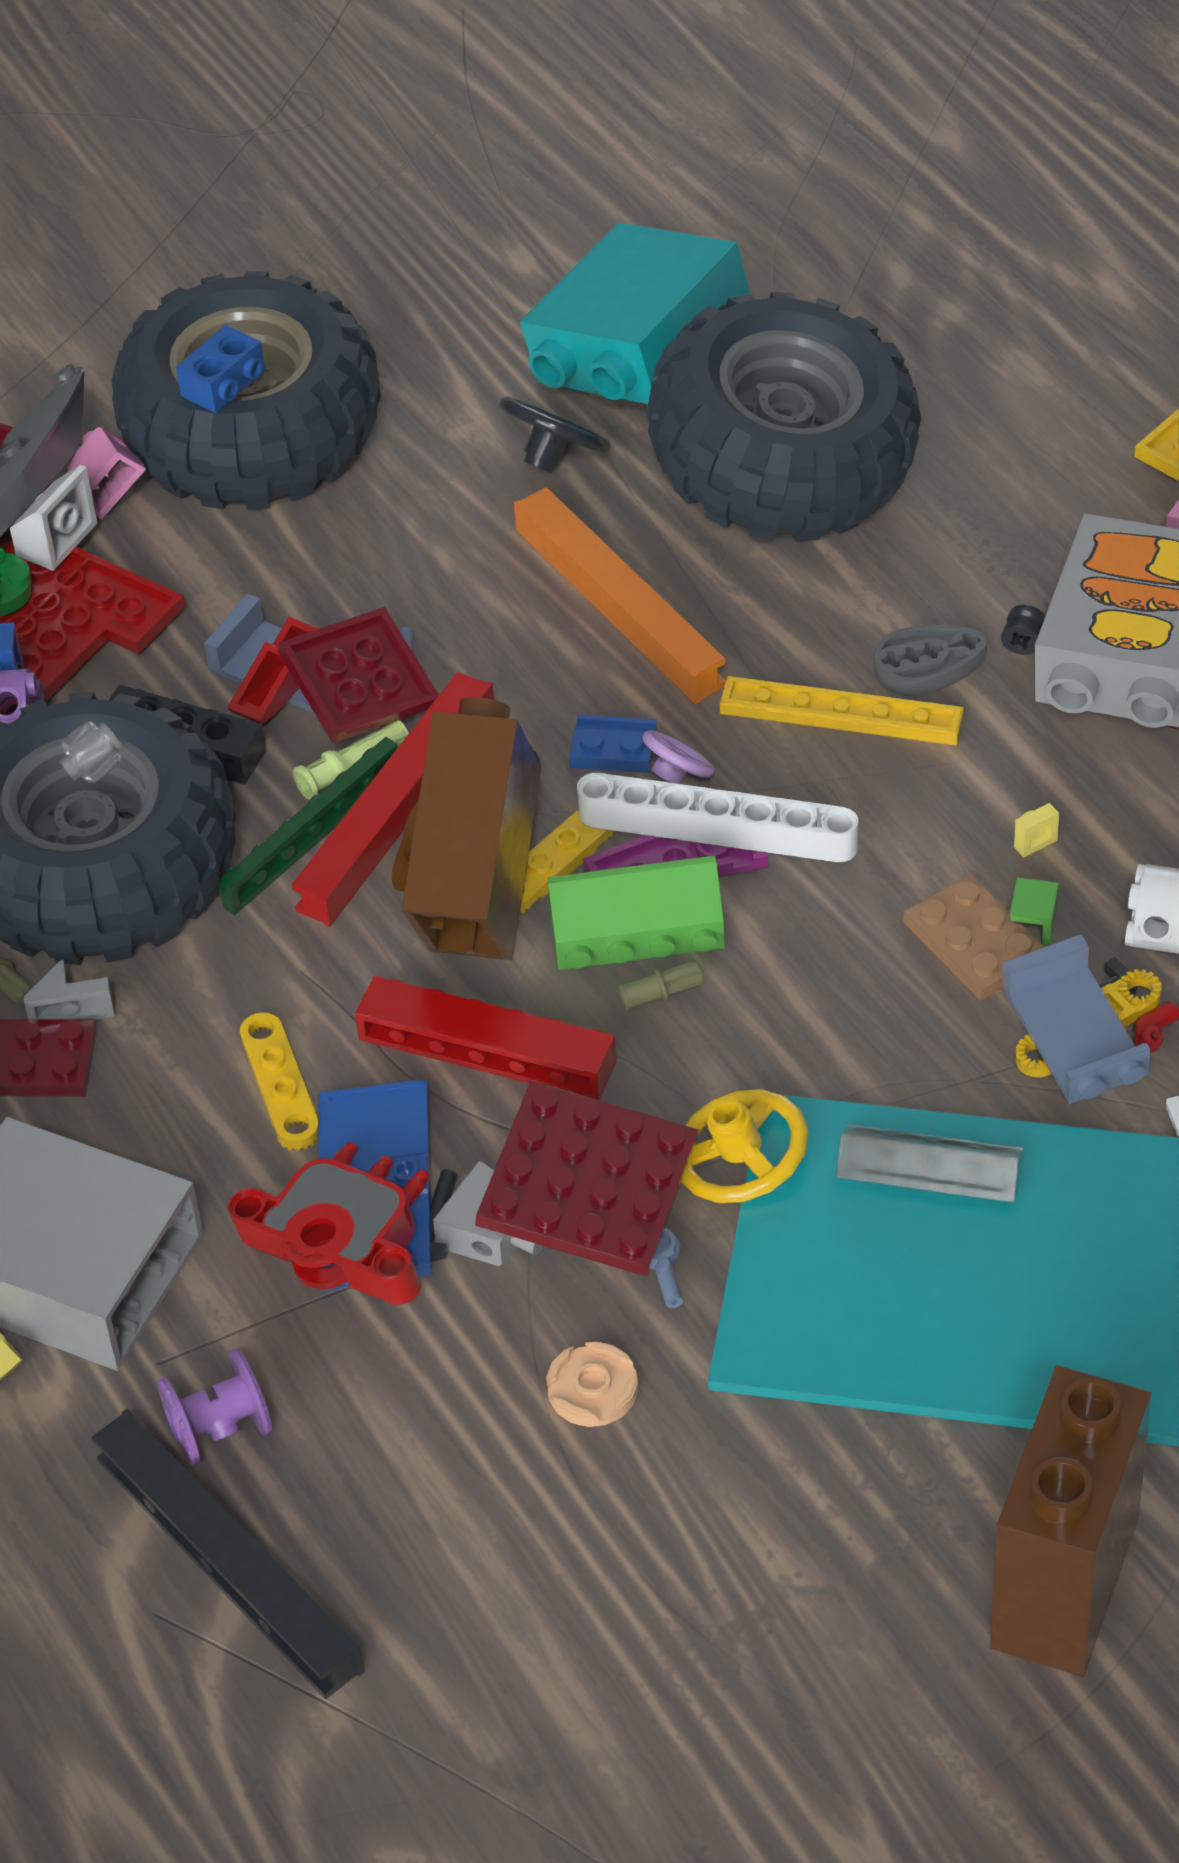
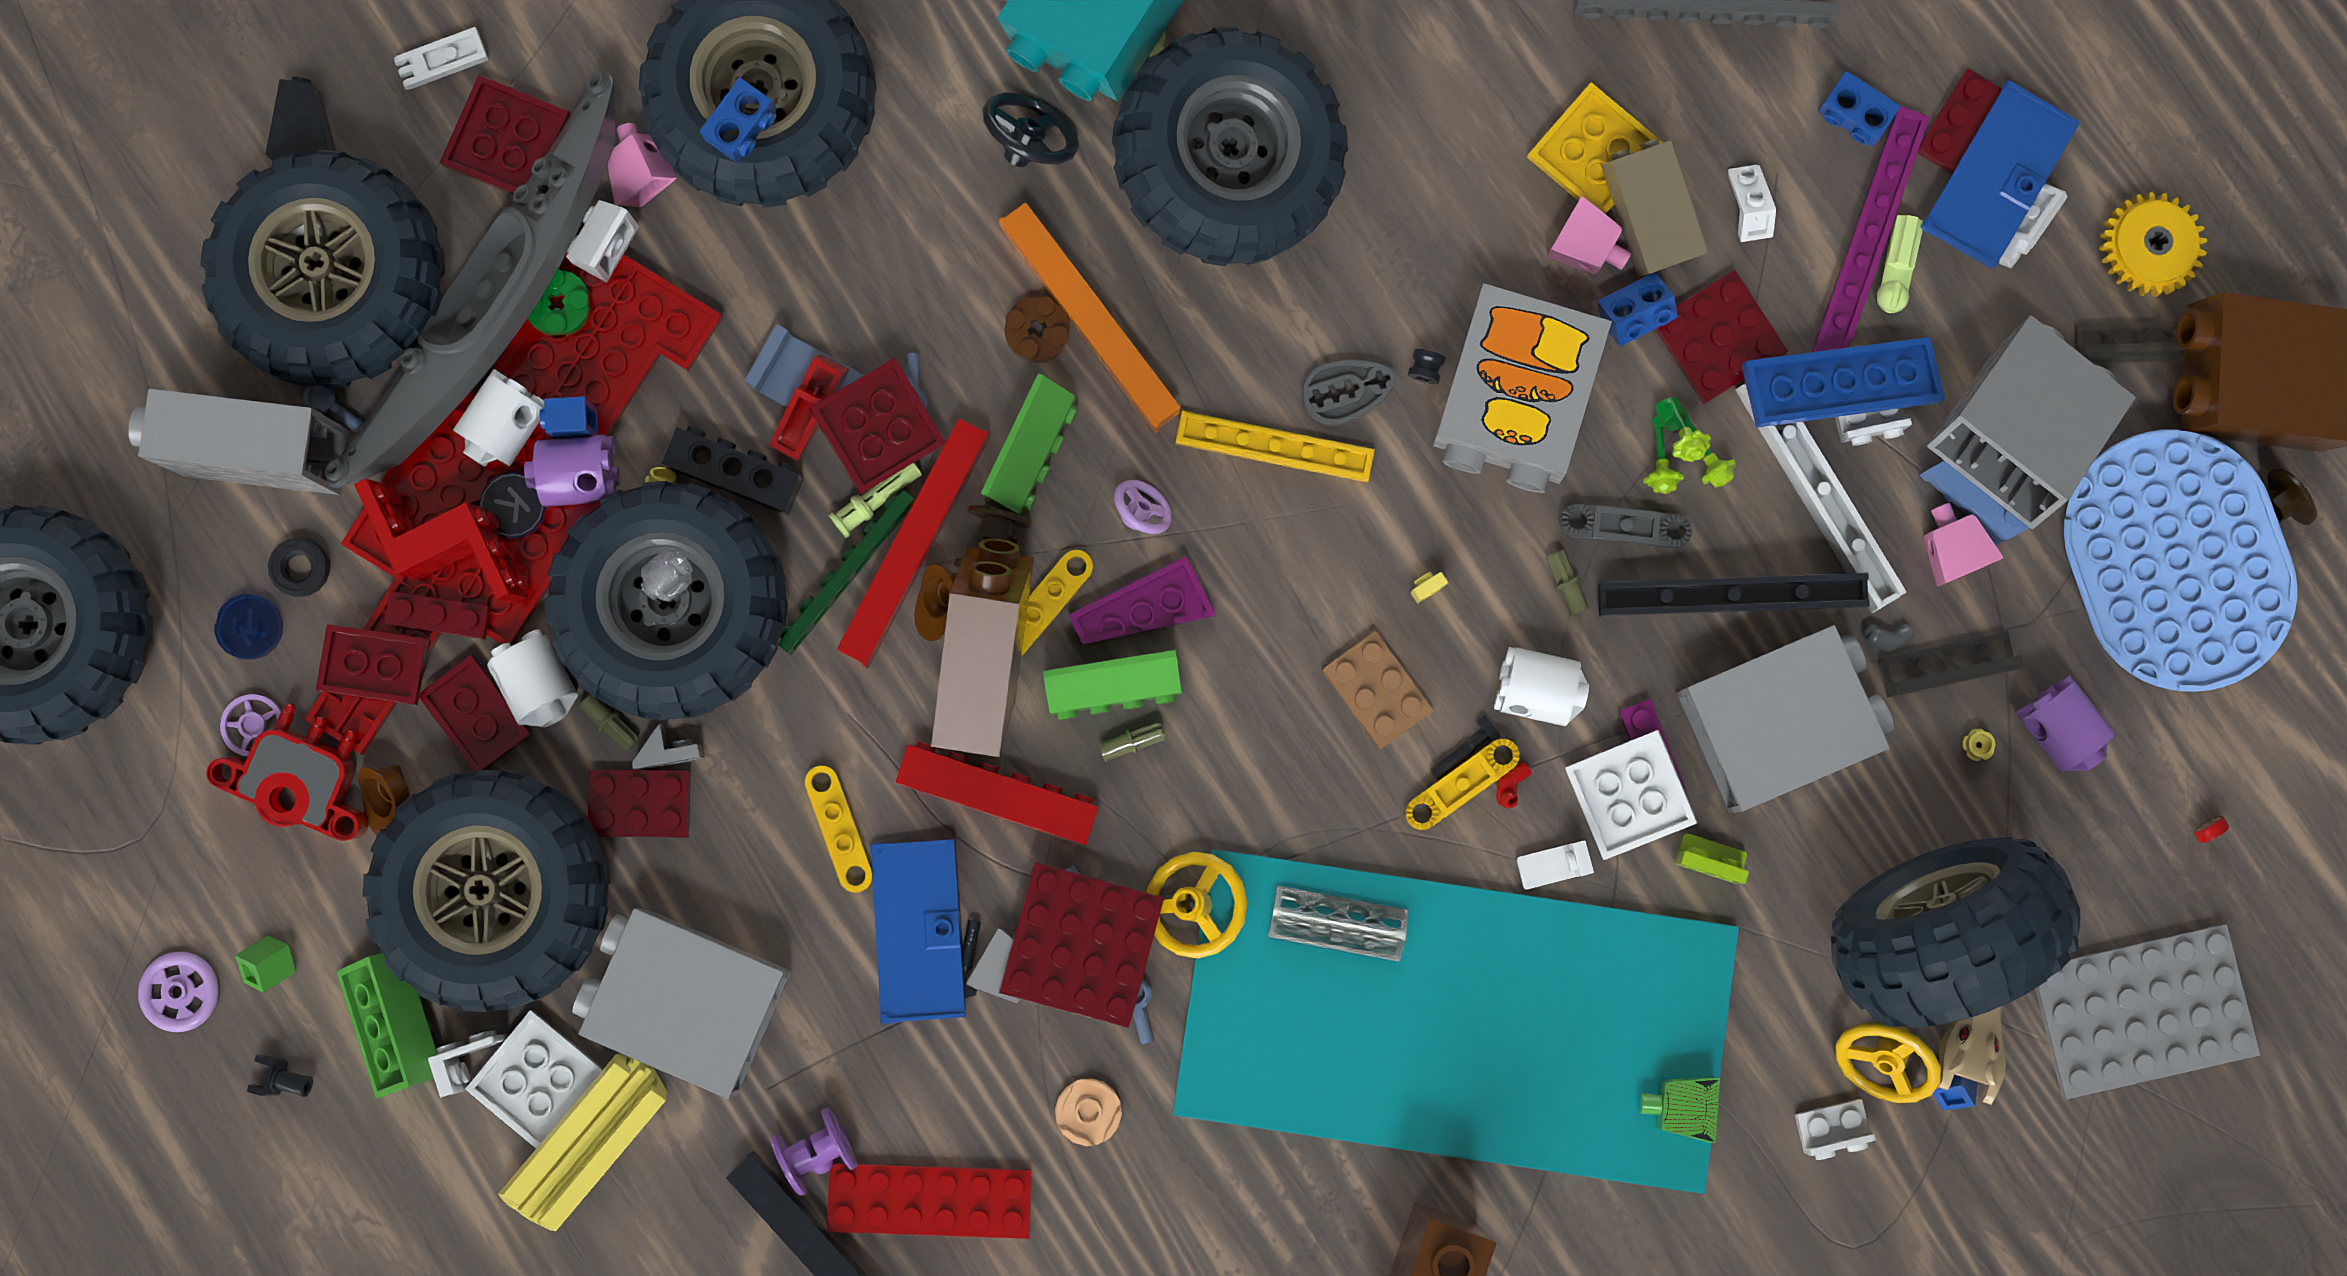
camera: 10 degrees left, 35 degrees up
(338, 1218) = (904, 971): red piece -> none
(369, 1485) = (929, 1200): none -> red plate
(550, 682) = (1029, 447): none -> bright green slope
(557, 593) = (1029, 346): none -> reddish brown plate
(611, 743) = (1087, 479): blue plate -> none
(718, 817) = (1192, 580): white beam -> none
(1036, 904) = (1424, 672): bright green panel -> none
(1072, 1020) = (1453, 799): sand blue panel -> none

